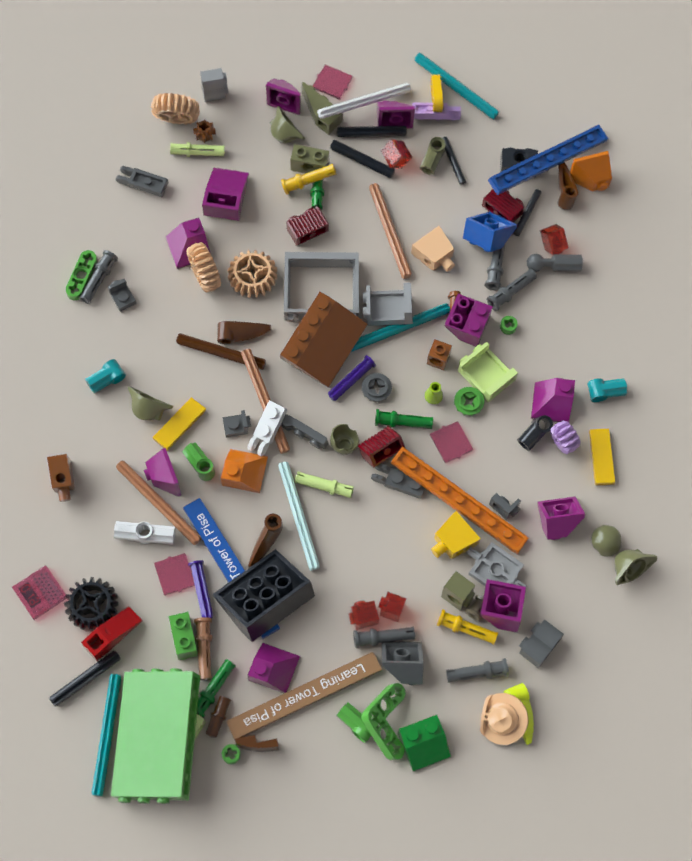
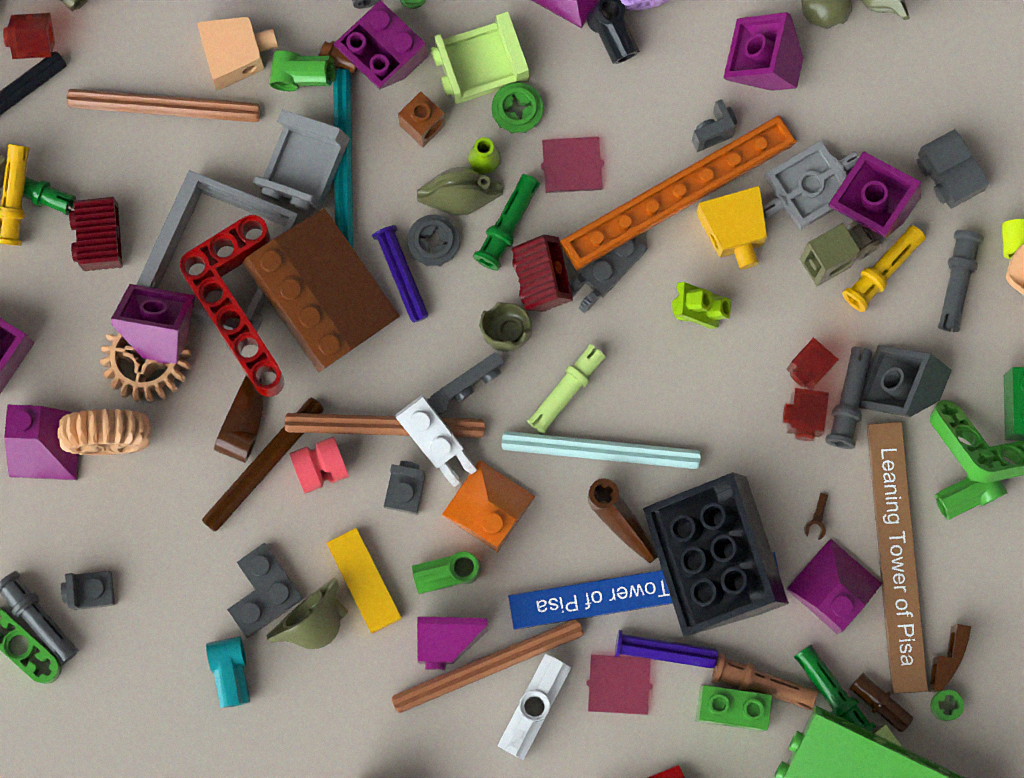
camera: 65 degrees left, 10 degrees up
(154, 382) = (272, 593): none -> dark grey plate
(232, 378) = (319, 465): none -> coral wheel
(269, 265) = (154, 322): none -> magenta slope
(293, 296) = (227, 306): none -> red beam
(308, 644) = (818, 516): none -> reddish brown hand
(399, 533) = (700, 306): none -> lime hips
(410, 391) = (459, 191): none -> olive hat
(437, 284) = (294, 70): none -> bright green piece

